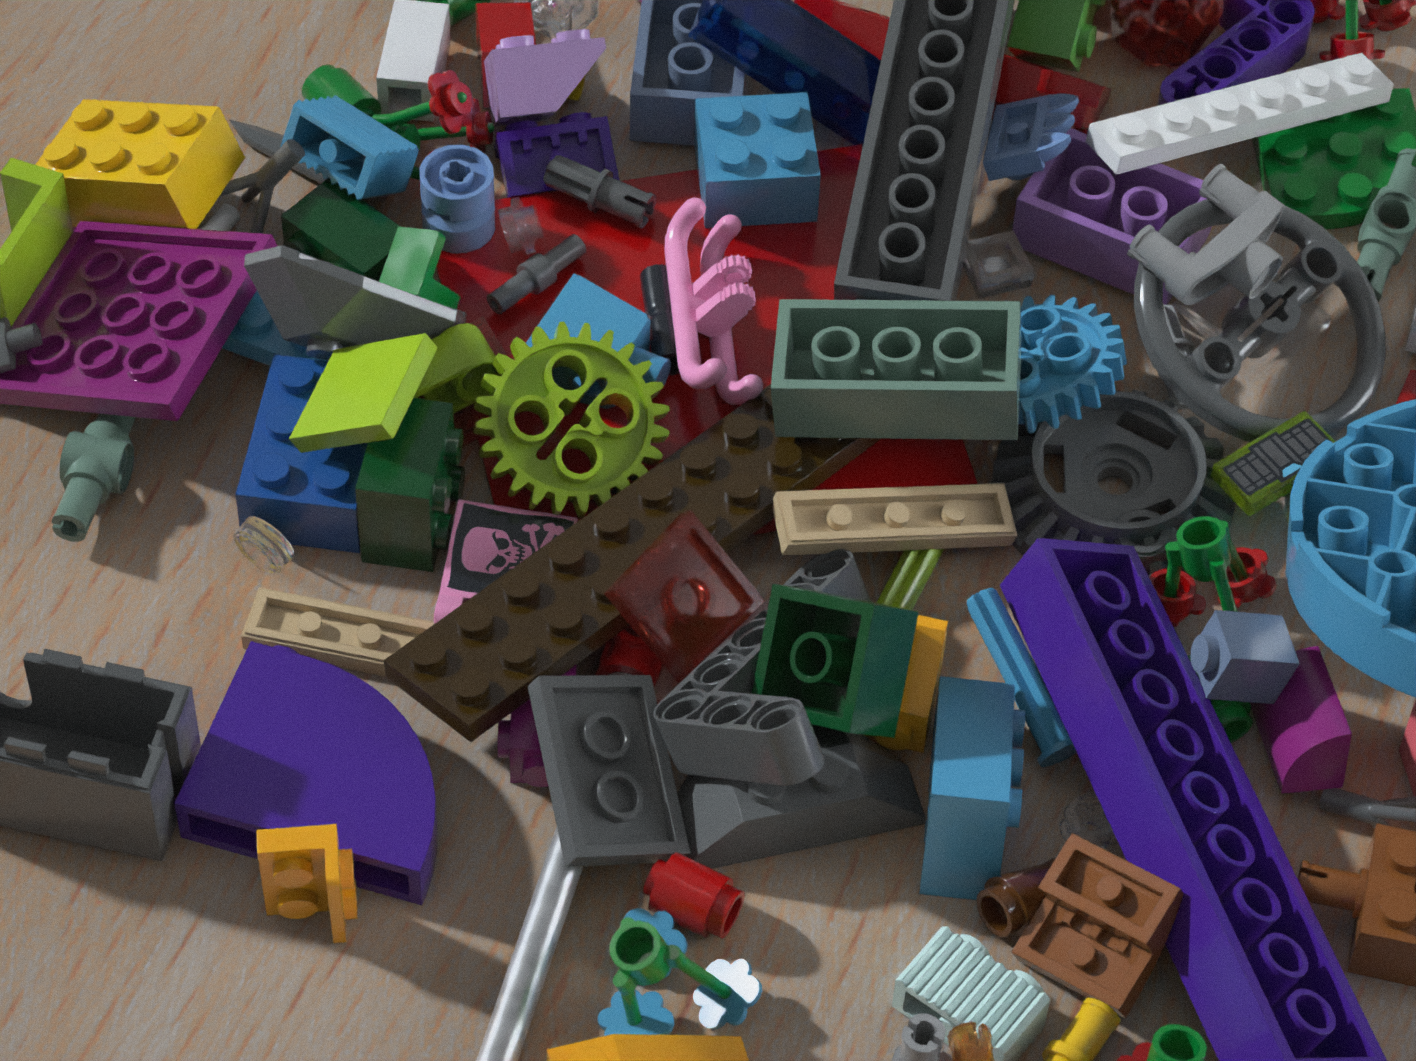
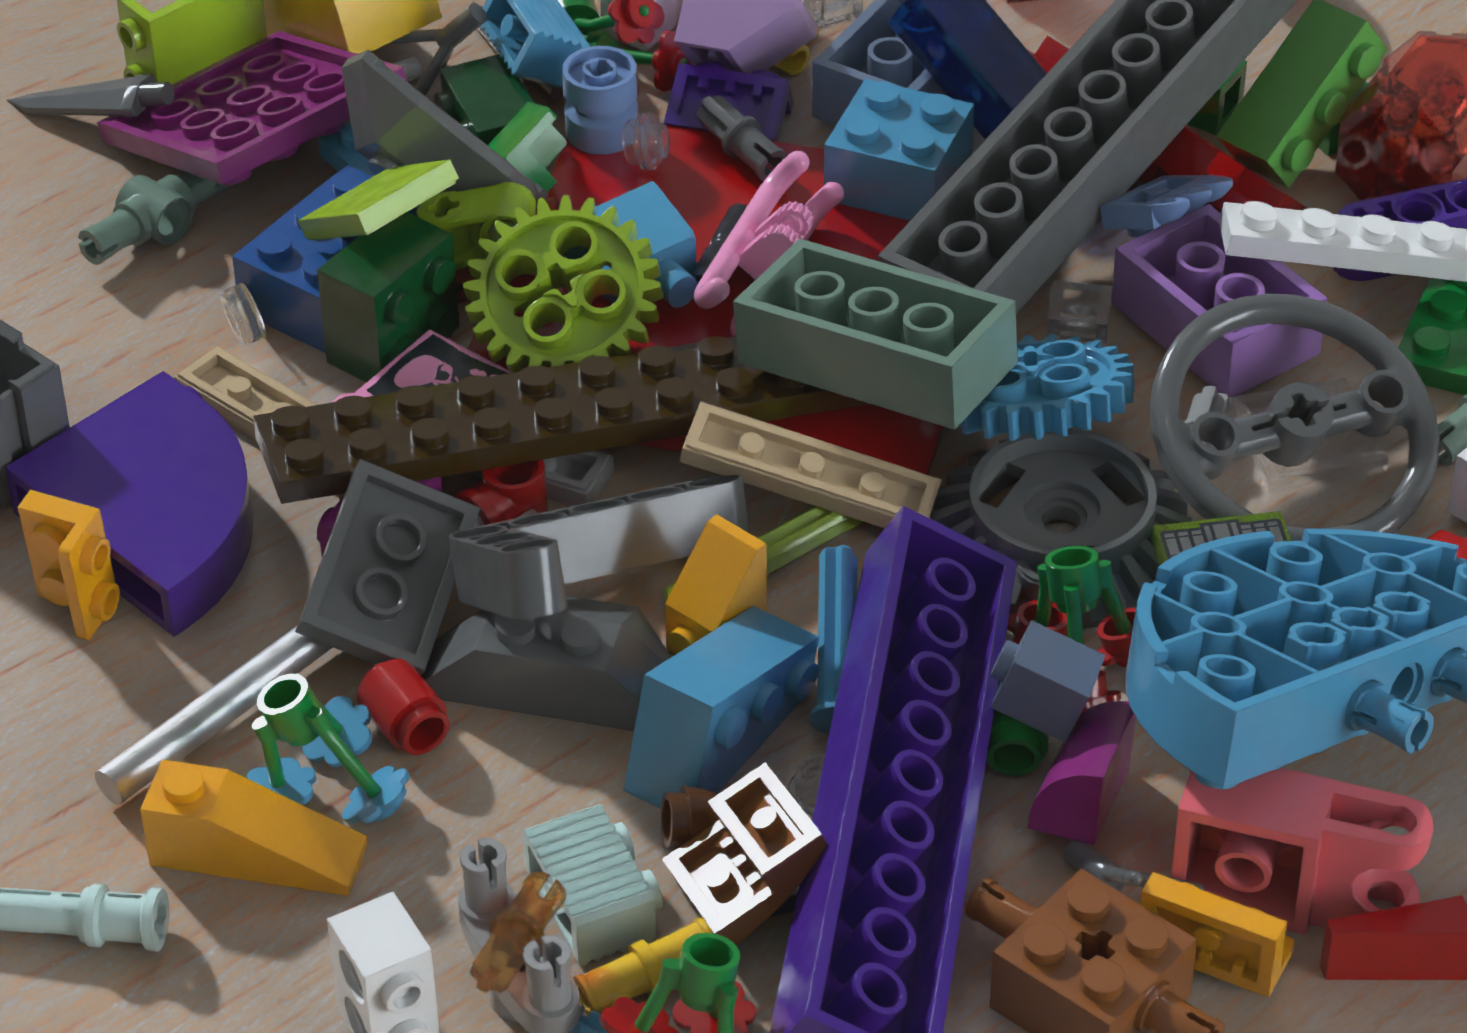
camera: 30 degrees right, 10 degrees down
(536, 274) = (634, 177): dark grey bar -> none
(684, 595) = (554, 451): clear red tile -> none
(837, 658) = (640, 539): dark green brick -> none
(1232, 257) = (1274, 341): light grey connector -> none

